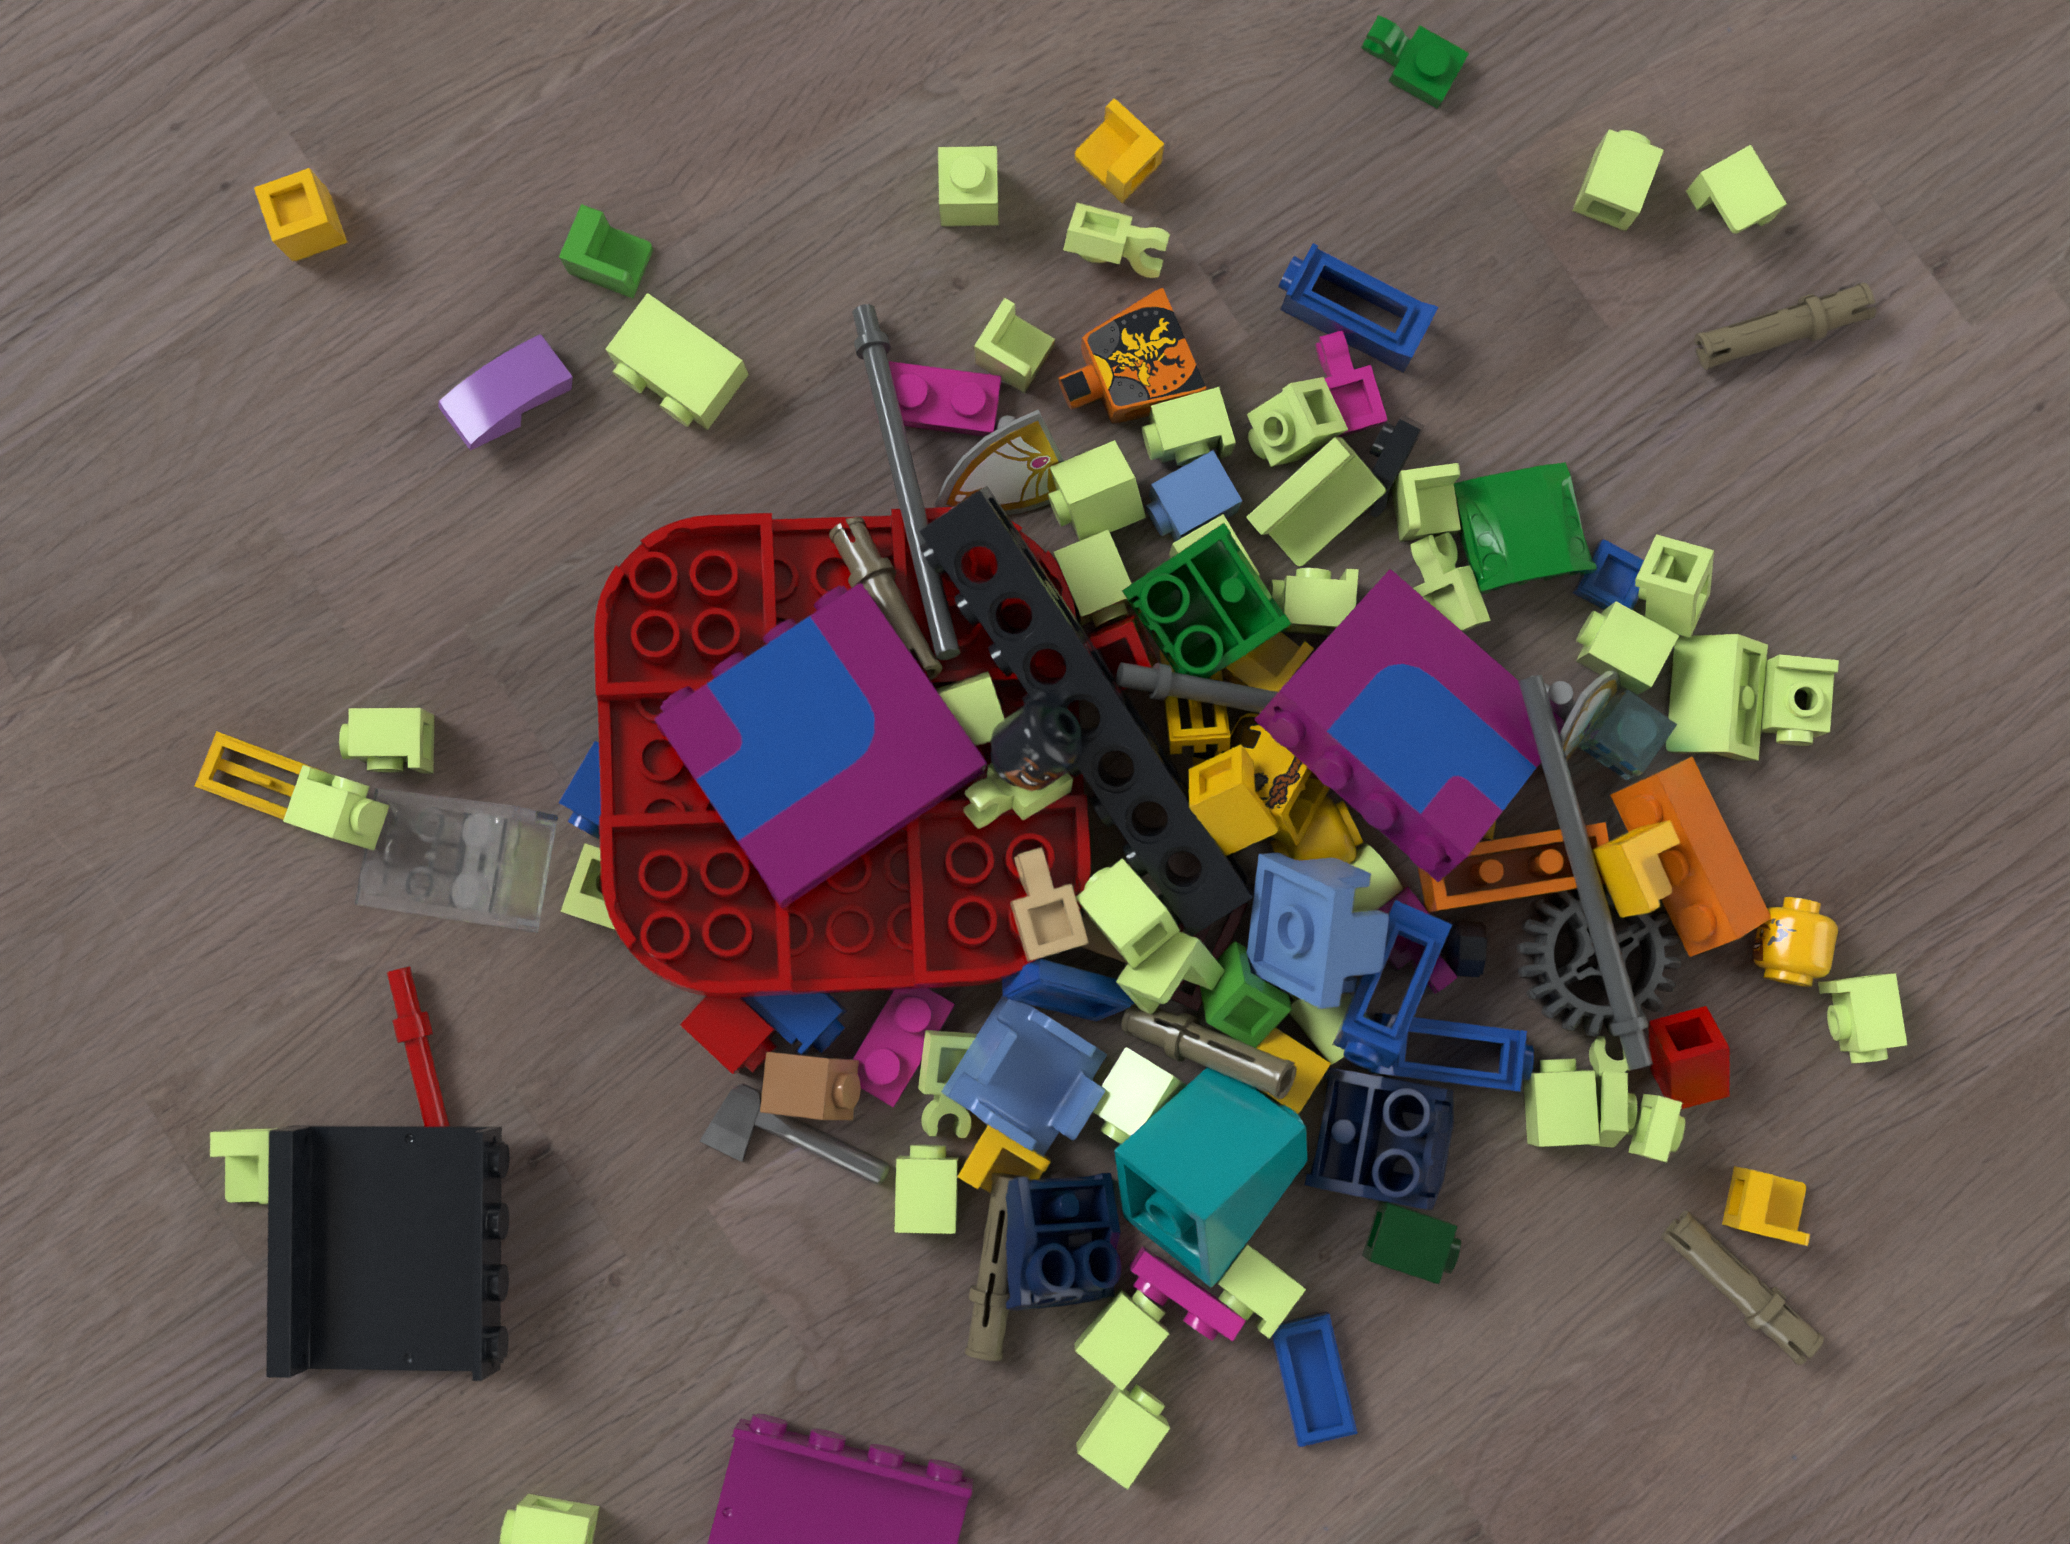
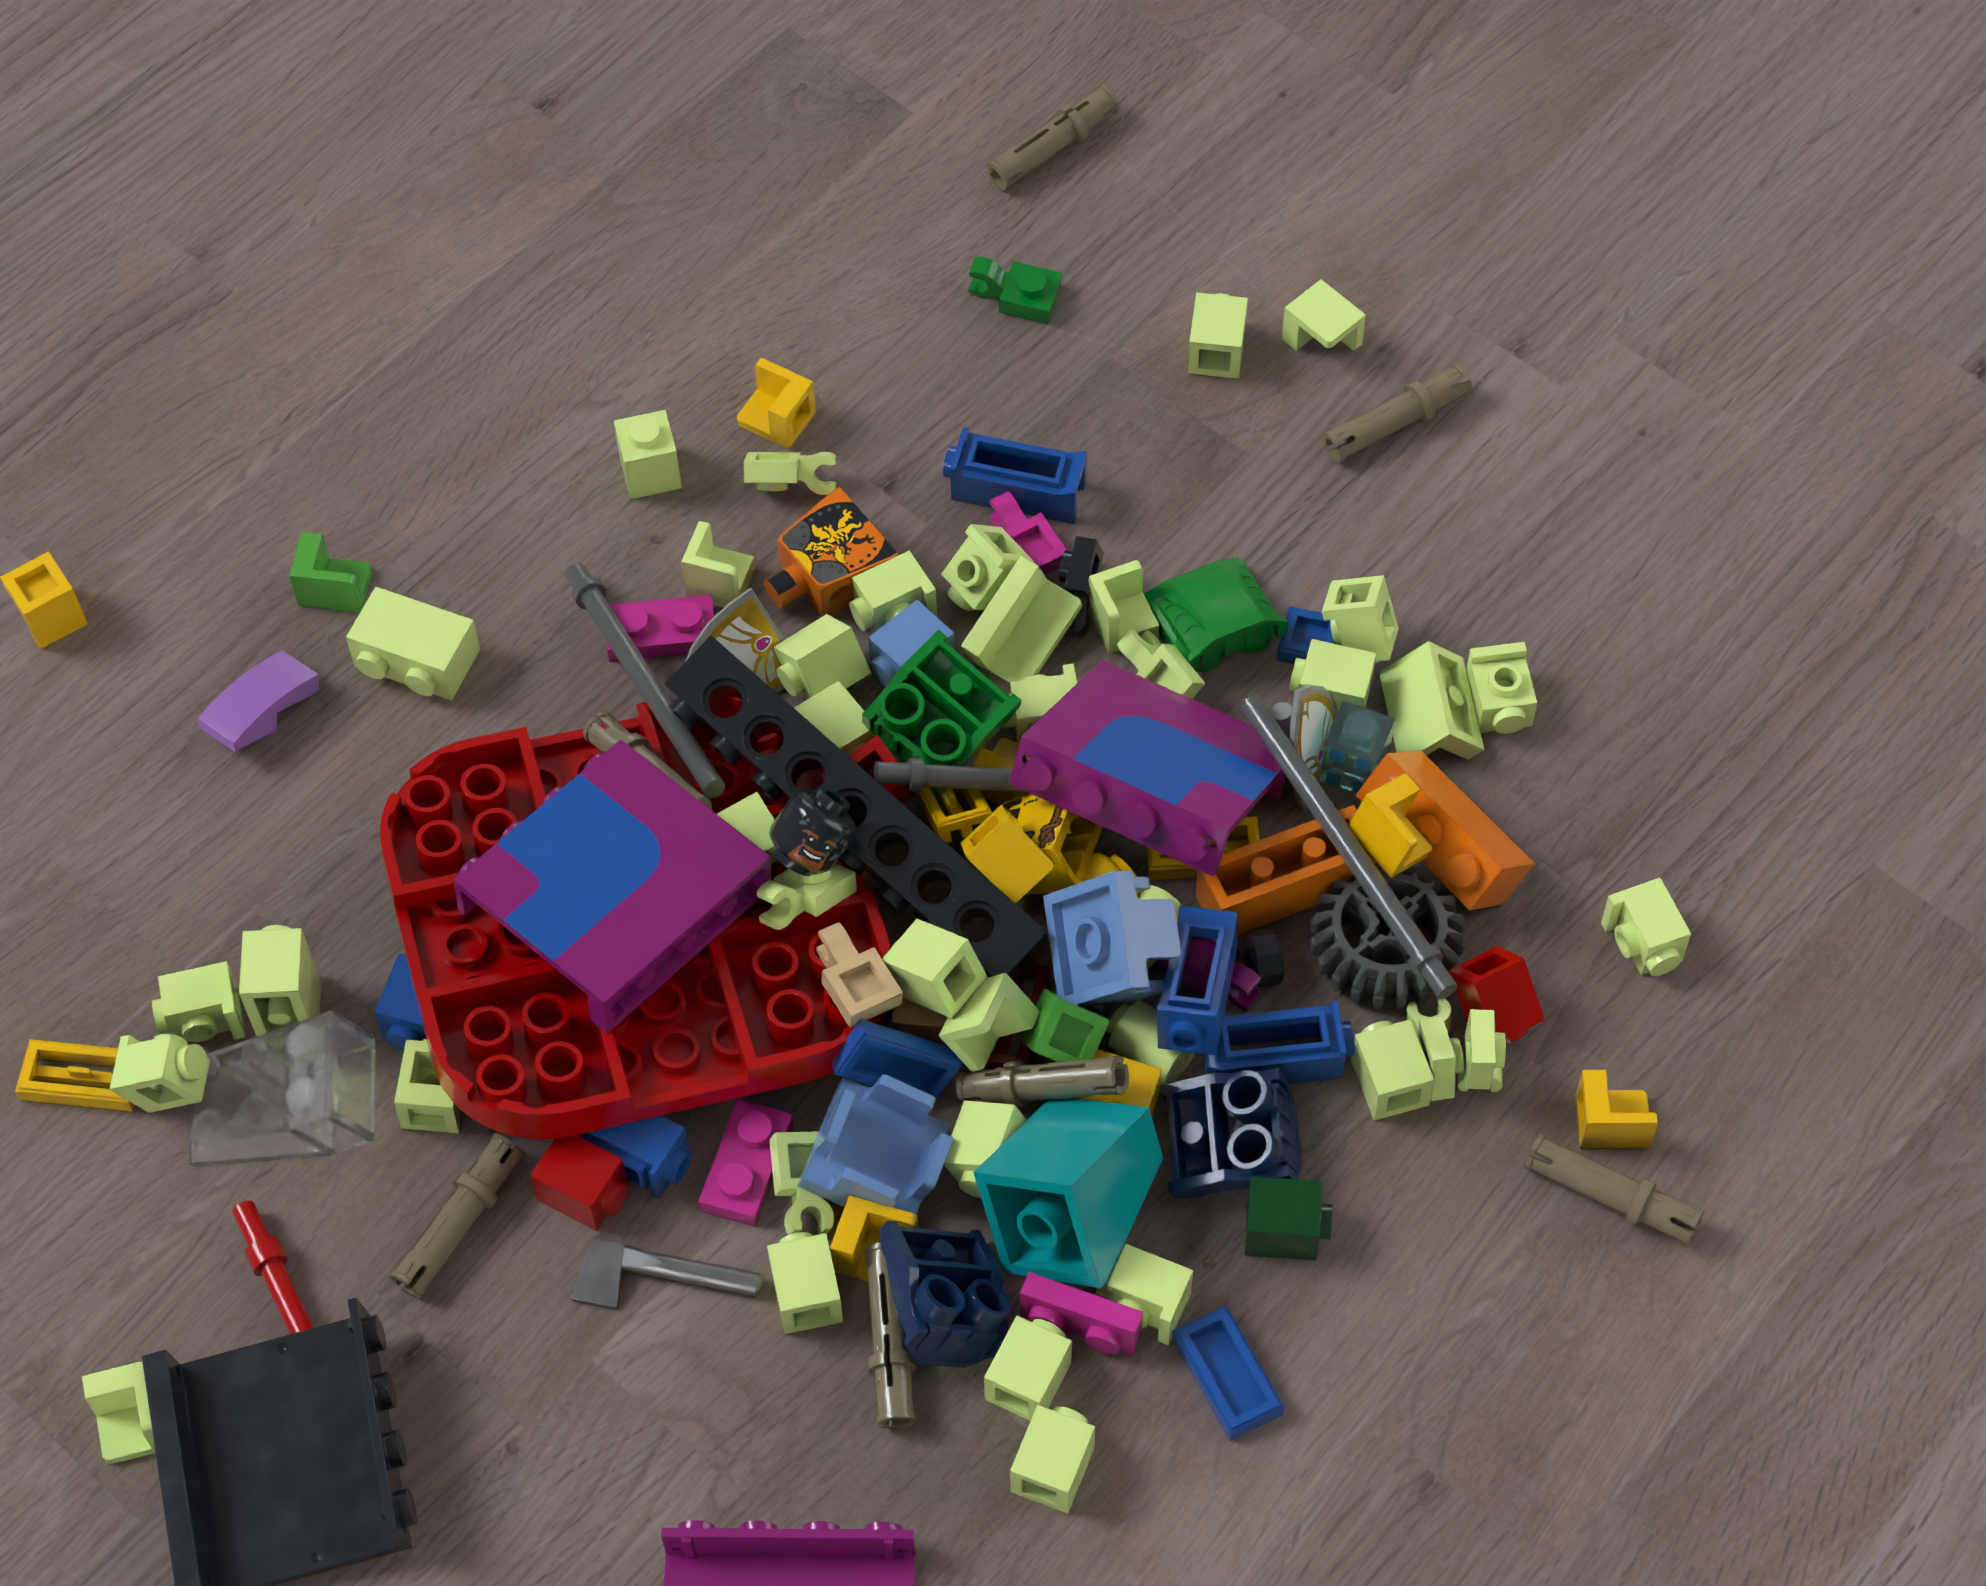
camera: 10 degrees left, 25 degrees down
(469, 748) = (278, 978): none -> yellowish green brick
(621, 1016) = (471, 1196): none -> dark tan pin
(810, 1086) = (668, 1208): medium nougat brick -> none
(1795, 943) = (1565, 886): yellow head -> none

